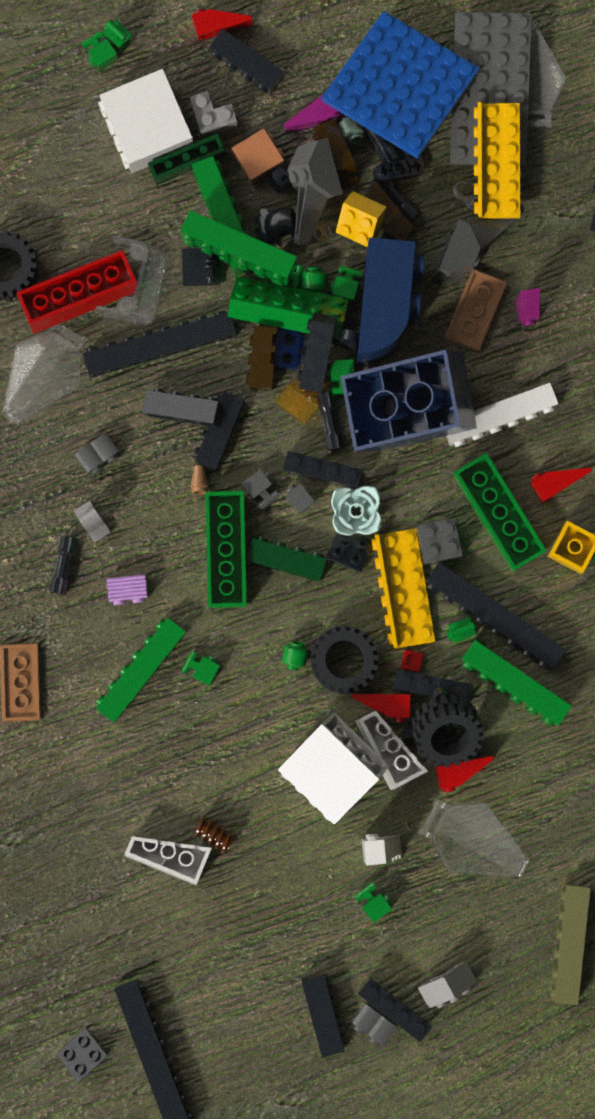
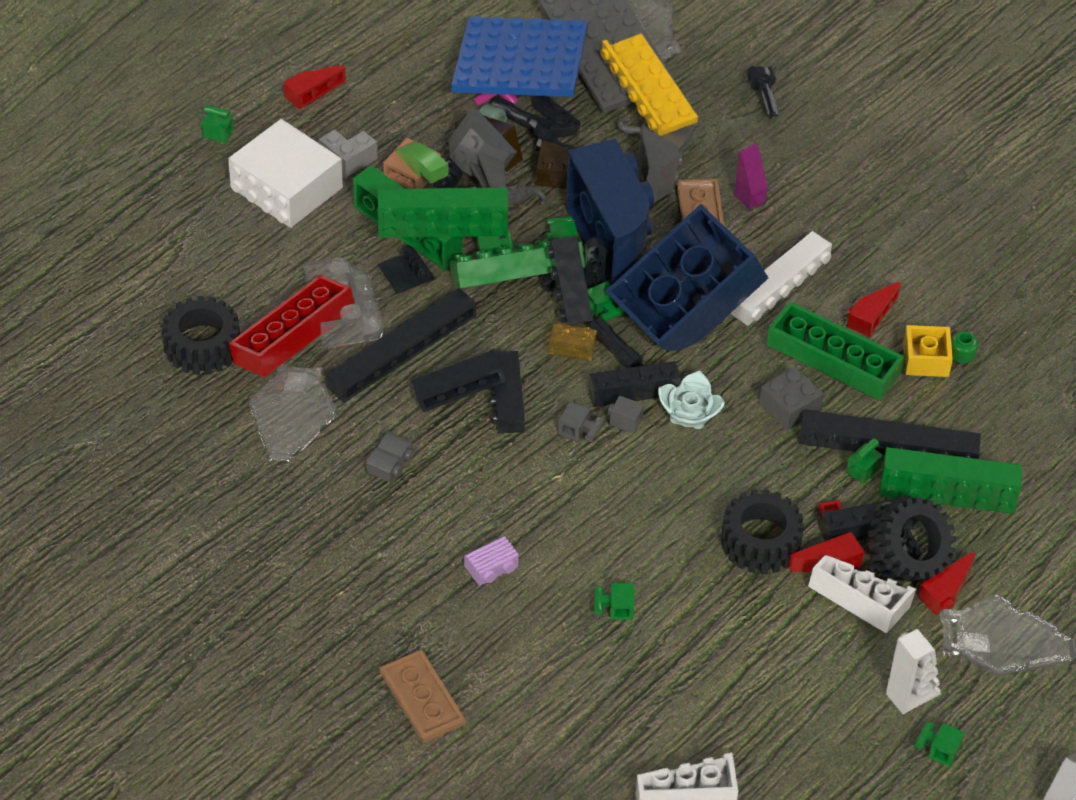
camera: 25 degrees left, 35 degrees down
(63, 564) = (412, 579): black axle -> none
(92, 521) = (418, 516): light grey tile -> none
(102, 53) = (208, 143): green brick -> none
(140, 670) = (550, 628): green brick -> none
(181, 161) = (337, 192): dark green brick -> none
(199, 481) = (512, 442): medium nougat cone -> none
(214, 835) = (720, 746): reddish brown piece -> none
(226, 549) = (577, 484): green brick -> none
(246, 61) = (357, 103): black brick -> none
(260, 166) = (424, 161): none -> bright green slope
(262, 358) = (513, 313): dark brown wedge -> none
(284, 349) = (536, 302): clear blue brick -> none
(286, 560) = (645, 472): dark green brick -> none
(295, 655) = (708, 550): green head -> none
(311, 116) = (443, 122): magenta slope -> none
(314, 279) = (526, 234): green head -> none
(333, 768) = (816, 618): white brick -> none
(350, 551) = (705, 439): black hinge -> none
(360, 218) = (546, 164): yellow brick -> none
(403, 588) = (782, 455): yellow bracket -> none

